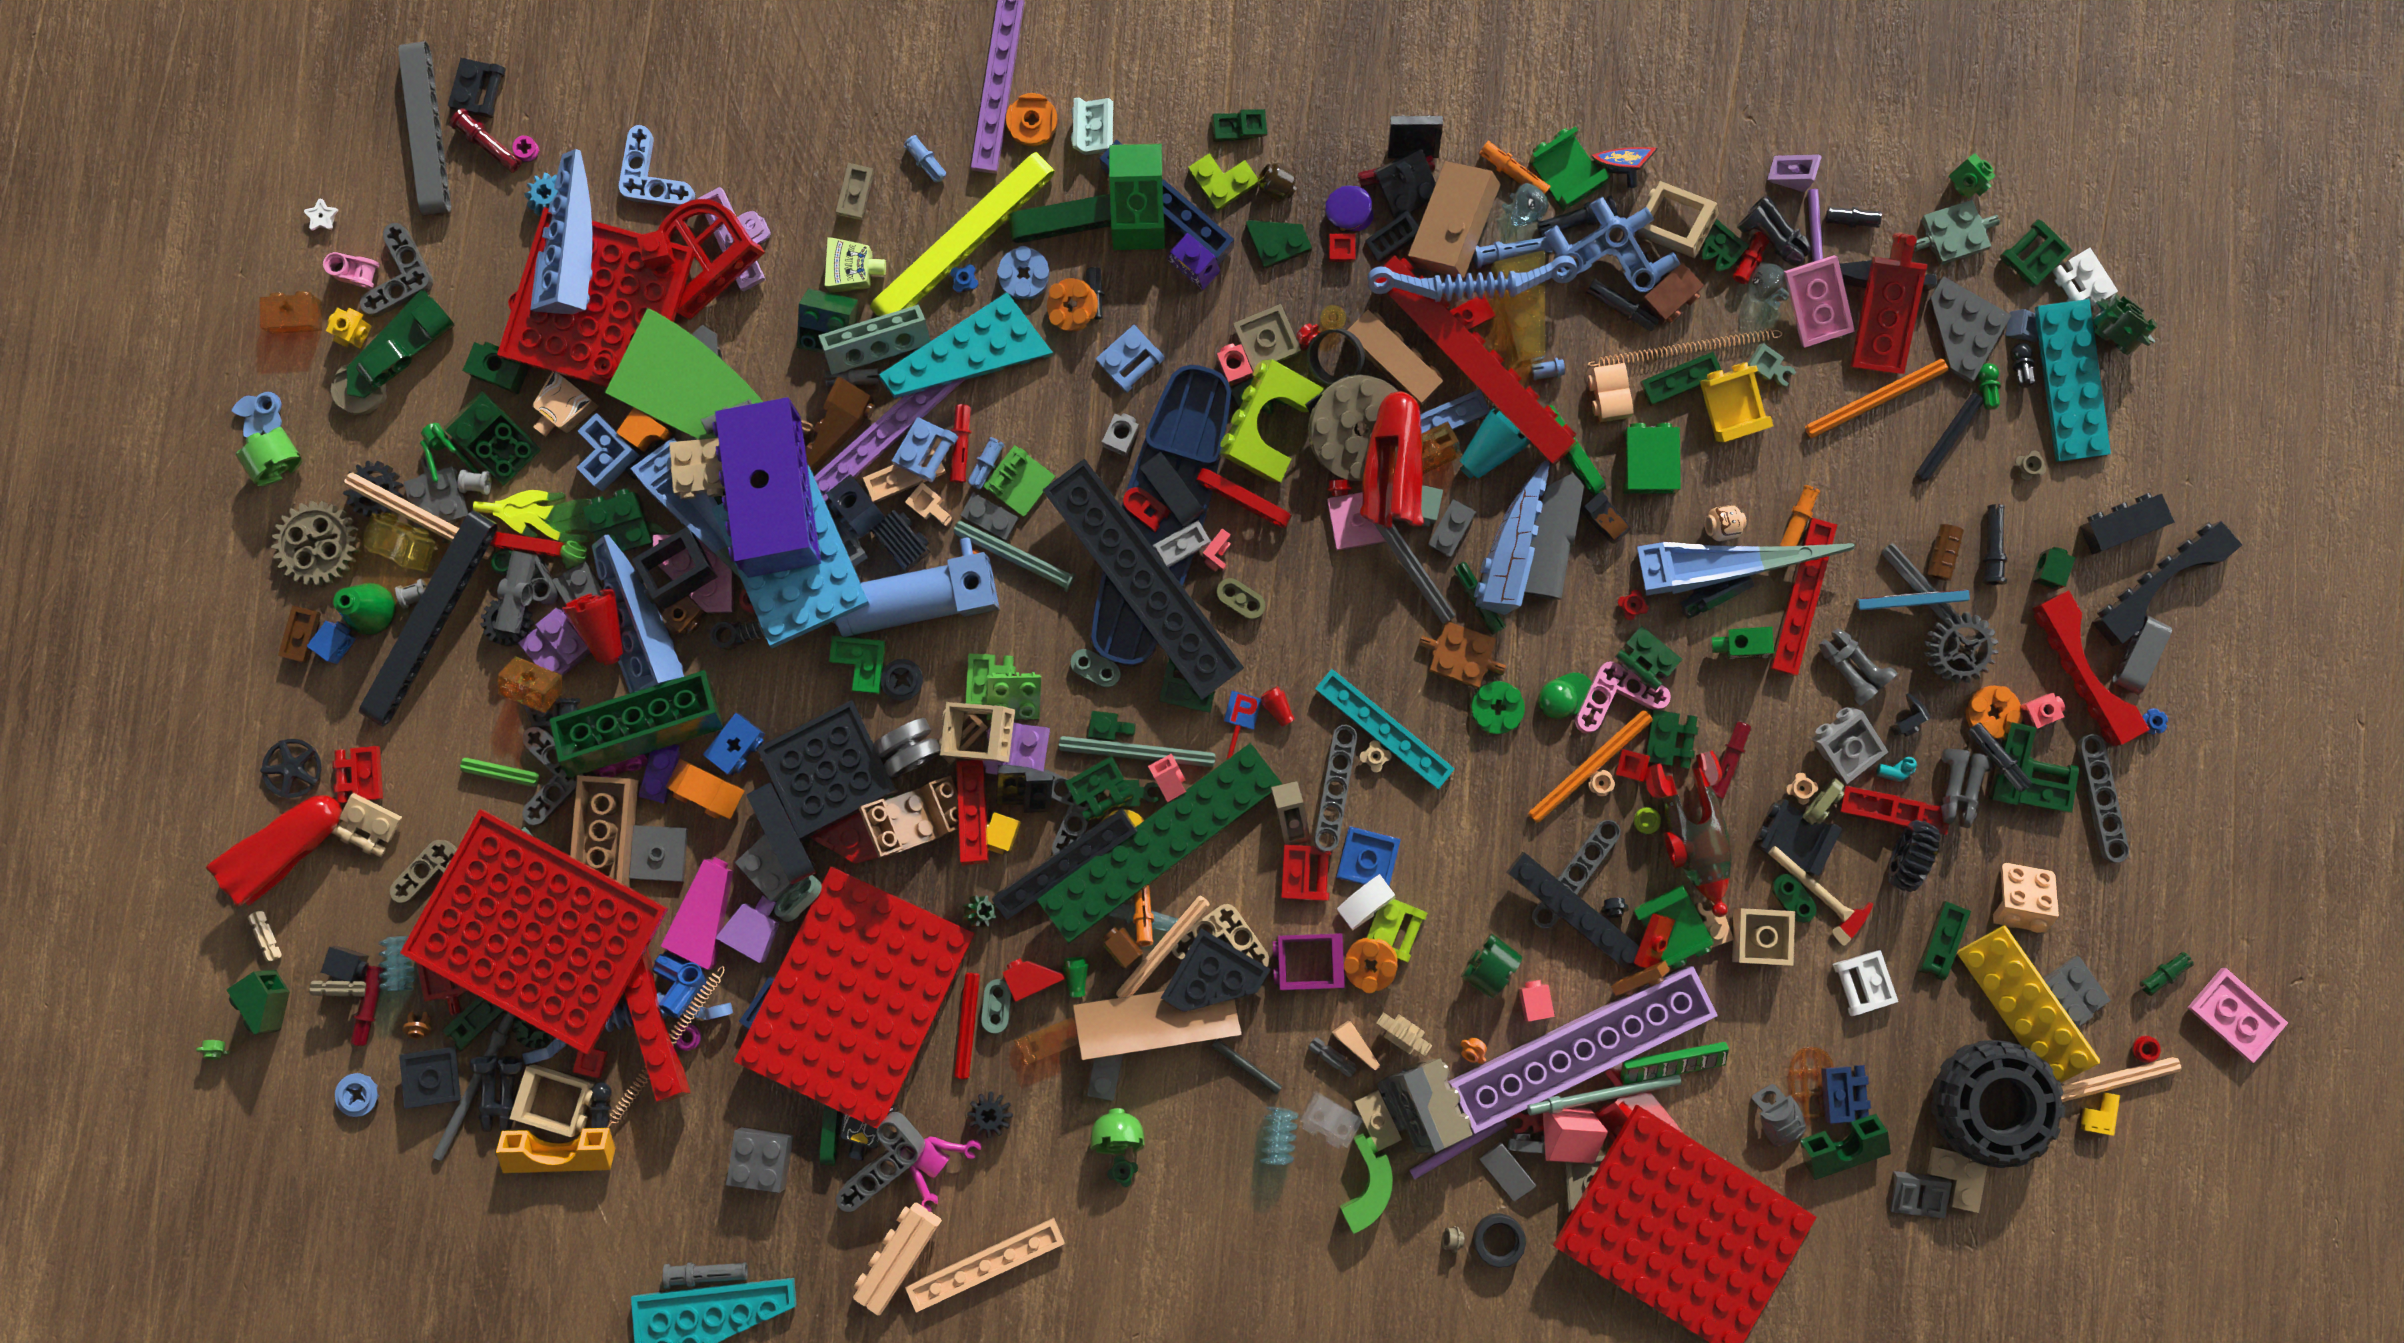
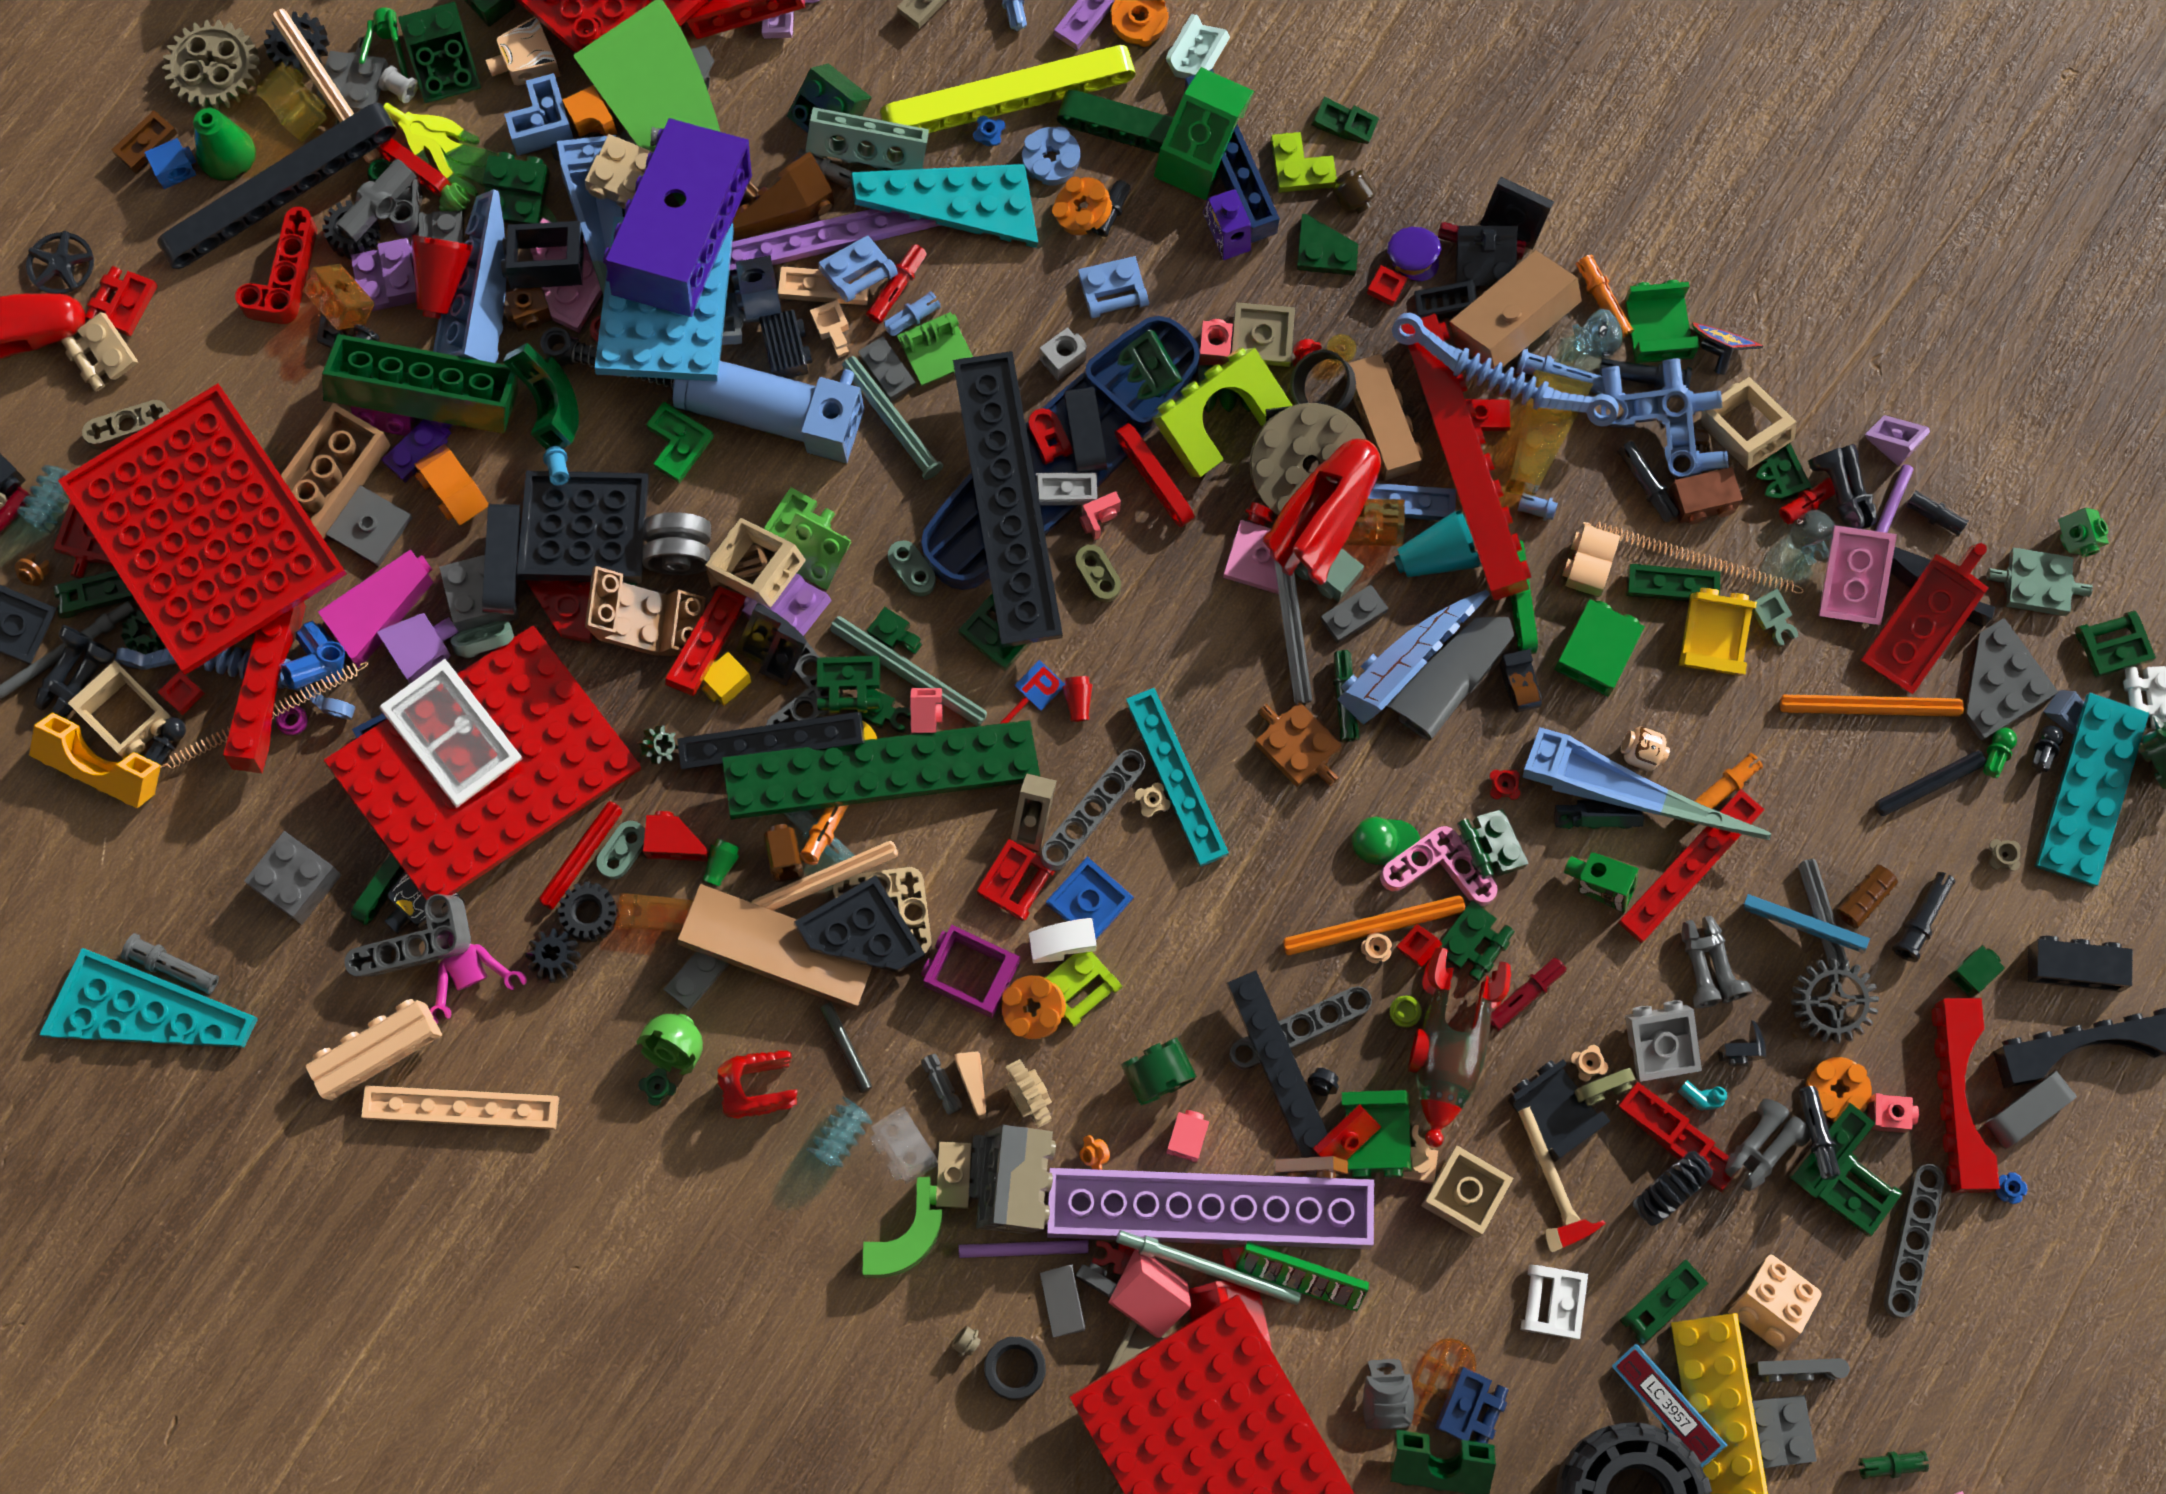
camera: 20 degrees right, 10 degrees down
(411, 593) = (270, 155): light grey bush -> none
(470, 680) = (283, 266): none -> red beam
(499, 772) = (259, 368): bright green axle -> none
(560, 779) = (314, 405): dark grey beam -> none
(722, 751) = (491, 453): blue brick -> none
(747, 679) = (553, 395): none -> dark green arch
(774, 727) = (556, 460): none -> dark azure pin
(818, 989) = (450, 733): none -> clear door
(850, 266) = (882, 64): yellowish green torso -> none
(889, 681) = (716, 469): black gear -> none
(981, 1071) = (592, 930): none -> black tyre
(1176, 1139) = (735, 1101): none -> red piece
(1197, 413) = (1151, 365): none -> dark green plate
(1485, 716) = (1305, 799): green plate -> none
(1794, 898) = (1522, 1173): dark green plate -> none
(1987, 1017) = (1669, 1404): none -> tile
(2068, 939) = (1801, 1369): none -> dark grey plate

